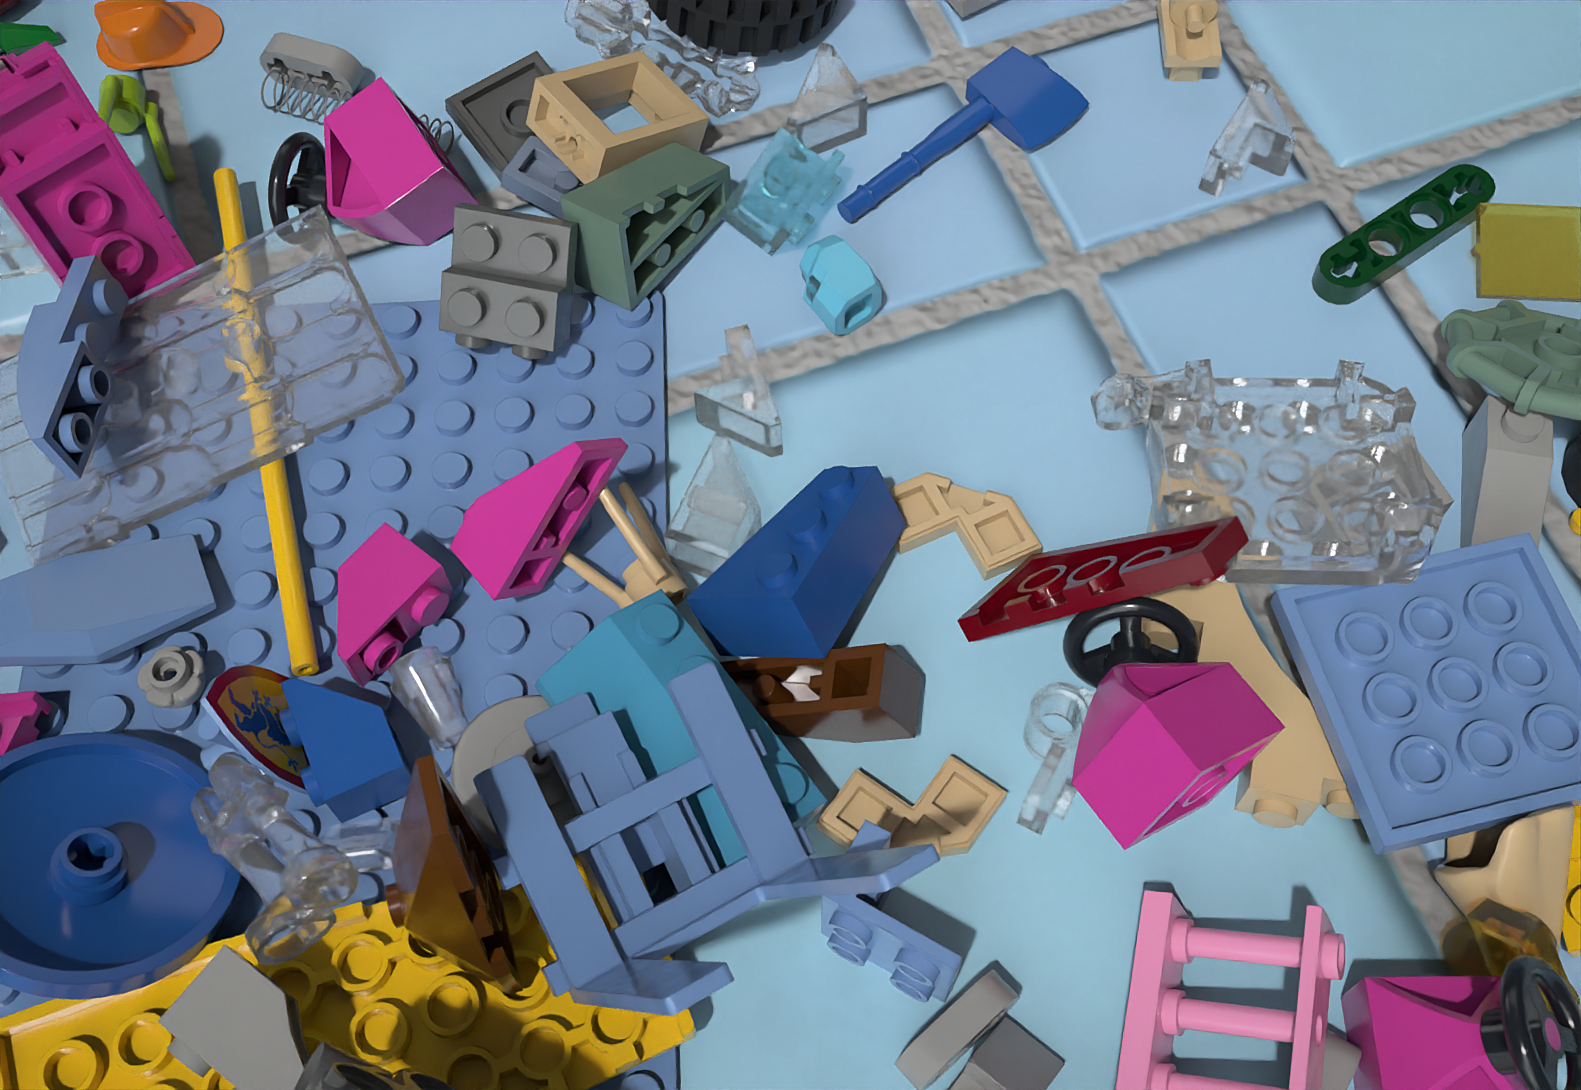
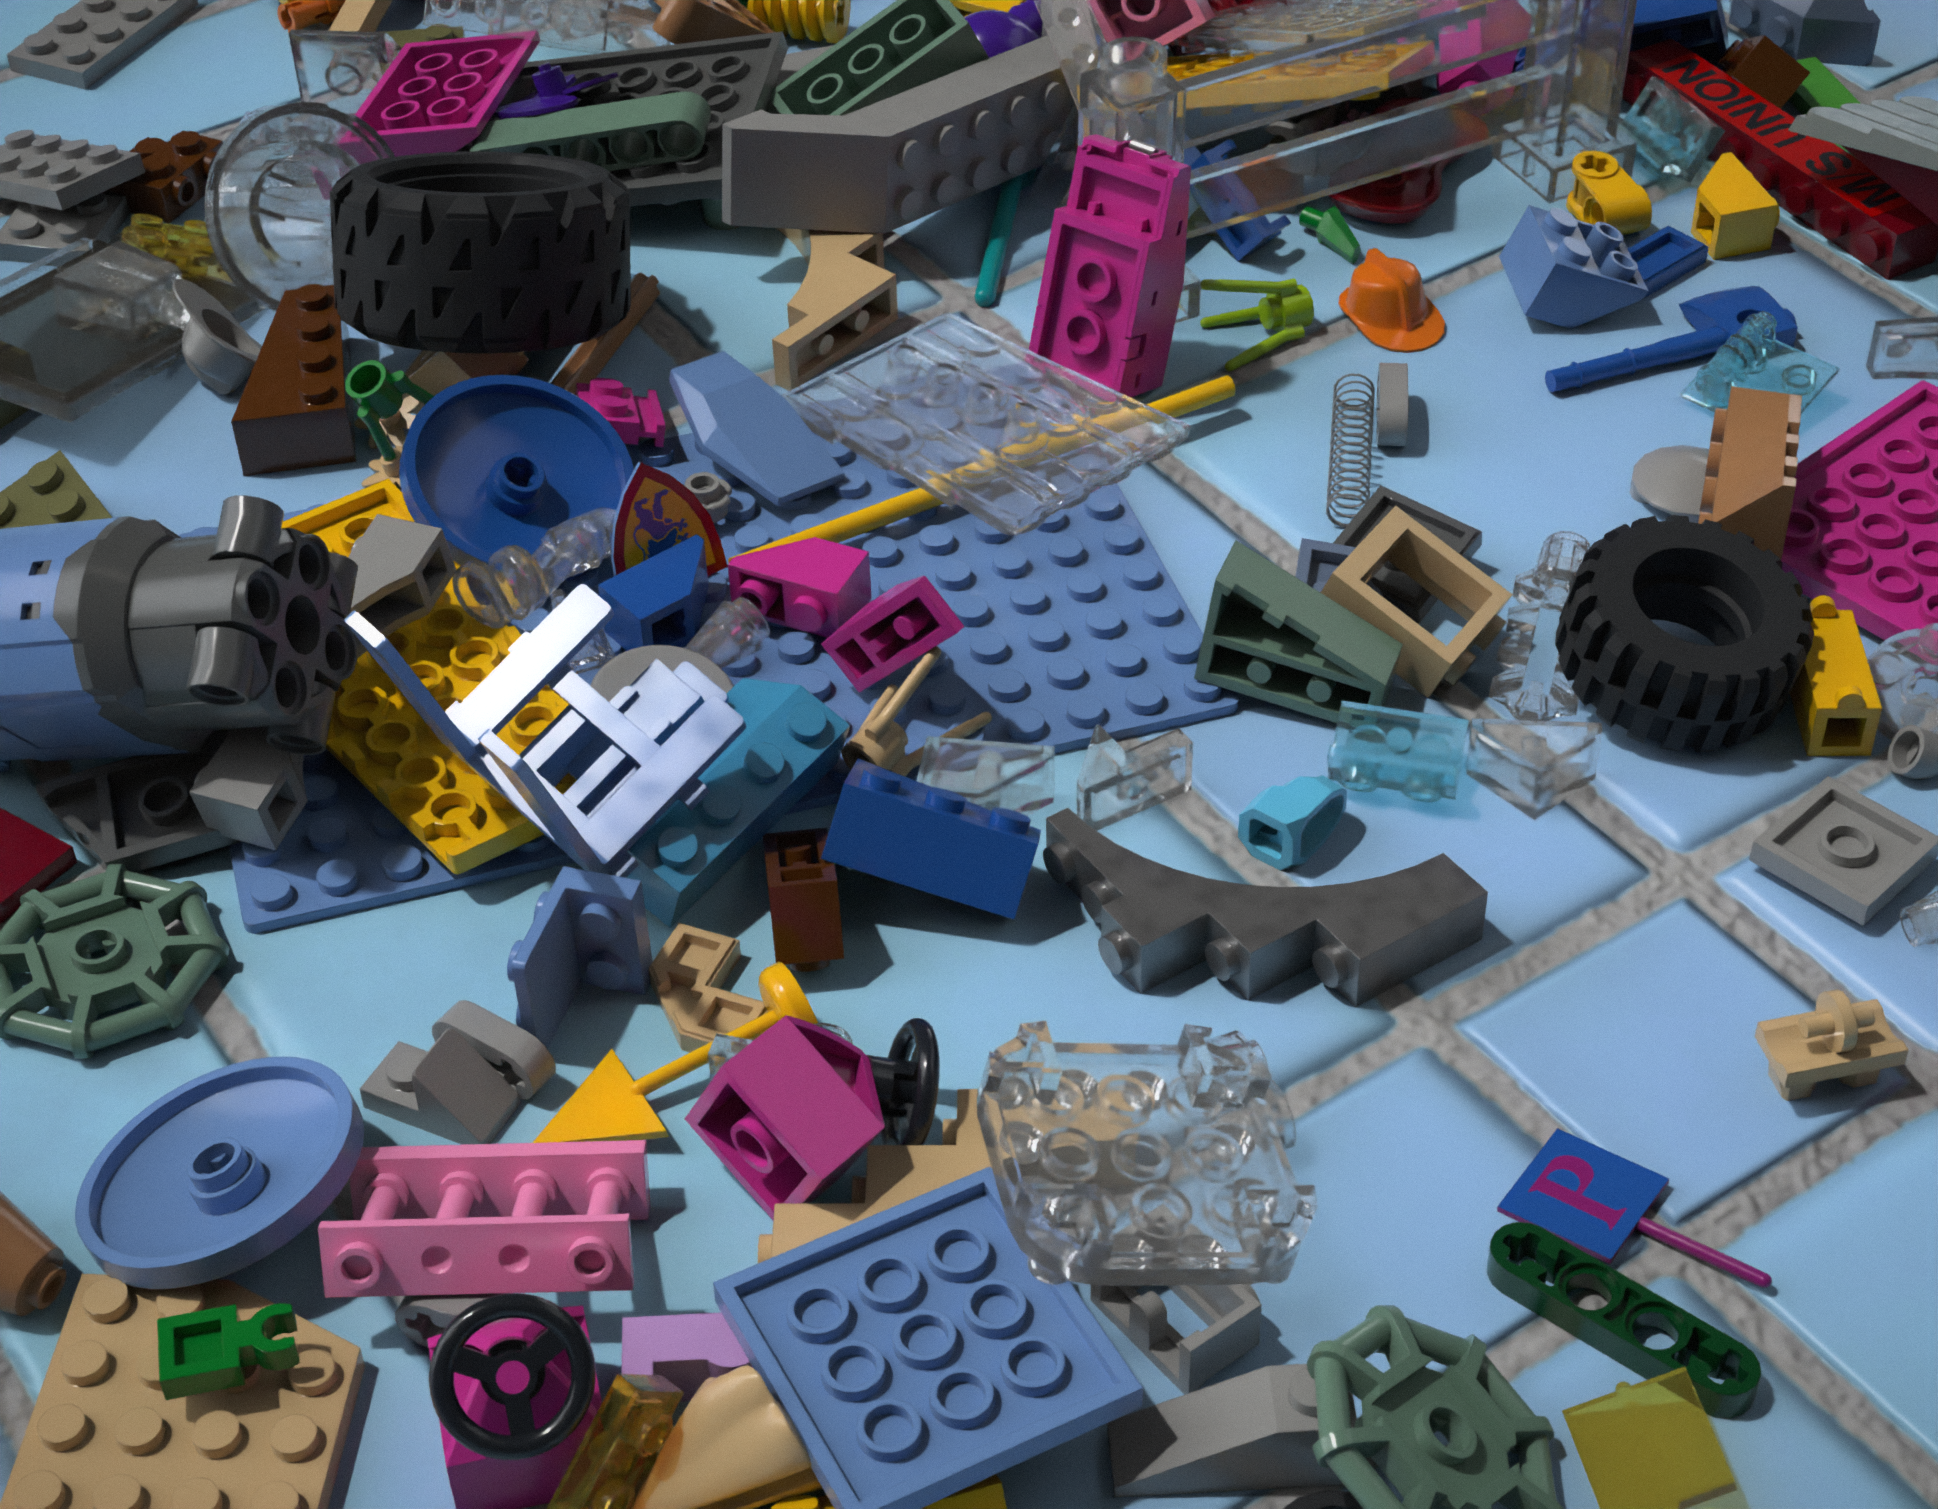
camera: 75 degrees right, 20 degrees down
(61, 367) = (946, 329): medium blue slope -> none
(375, 171) = (1263, 462): dark pink piece -> none
(447, 884) = (512, 592): reddish brown wedge -> none
(509, 280) = (1160, 566): plate -> none
(977, 352) = (1256, 936): none -> flat silver arch
(985, 523) = (1057, 962): tan tile -> none
(1012, 94) = (1641, 927): blue piece -> none
(1047, 930) = (614, 1106): none -> yellow piece
(1104, 573) = (957, 1023): dark red wing -> none
(1253, 136) = (1697, 1128): clear slope -> none
(1278, 220) = (1599, 1202): none -> blue piece
(1381, 911) = (681, 1348): none -> lavender leg

